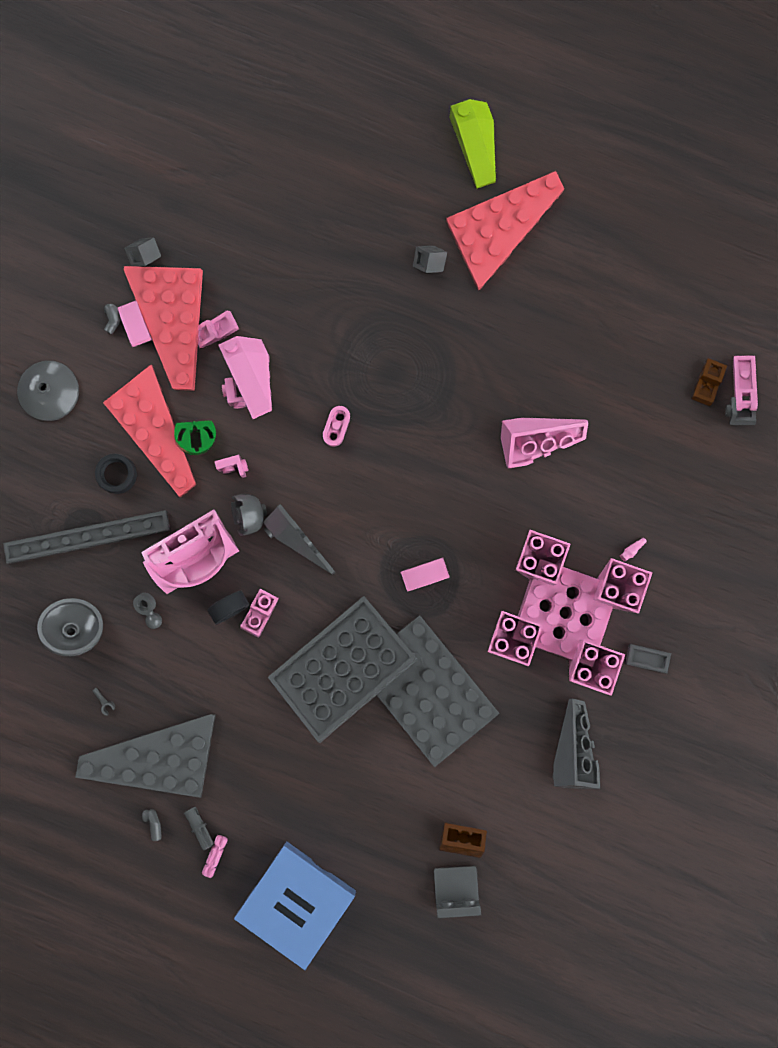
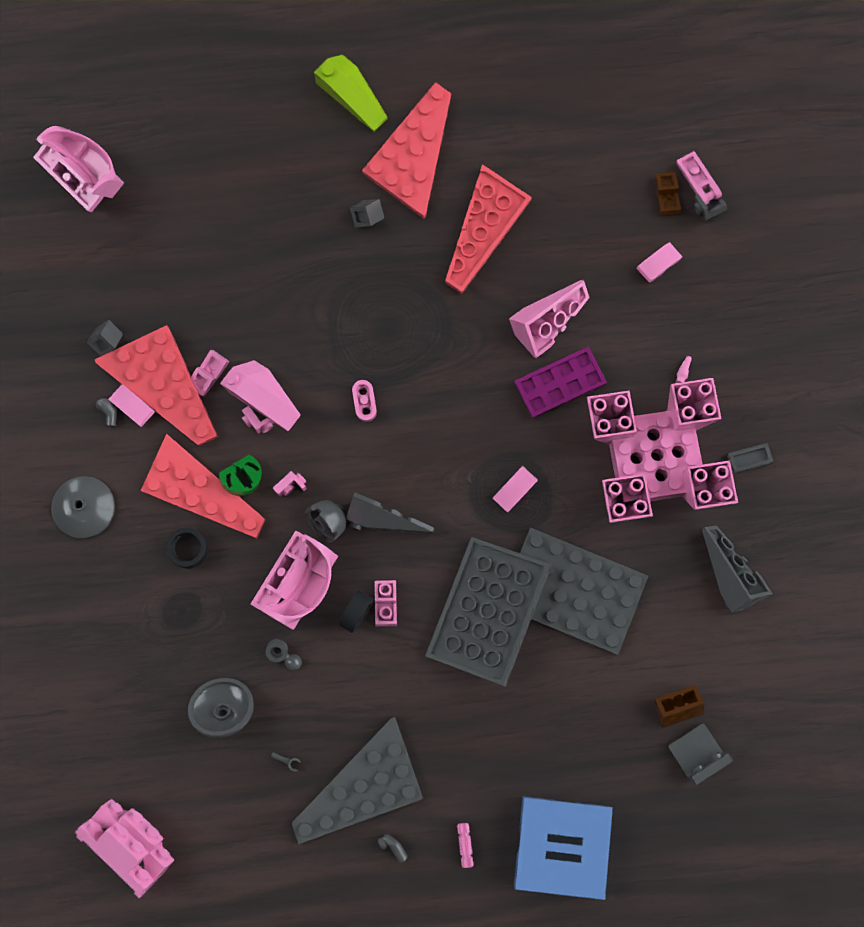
camera: 30 degrees left, 5 degrees down
(86, 537) = (189, 620): dark grey tile -> none
(199, 93) = (84, 171): none -> bright pink piece
(199, 828) = (437, 827): dark grey axle -> none
(517, 501) = (560, 382): none -> magenta plate
(534, 321) = (490, 216): none -> coral wing
(666, 440) = (659, 262): none -> bright pink slope

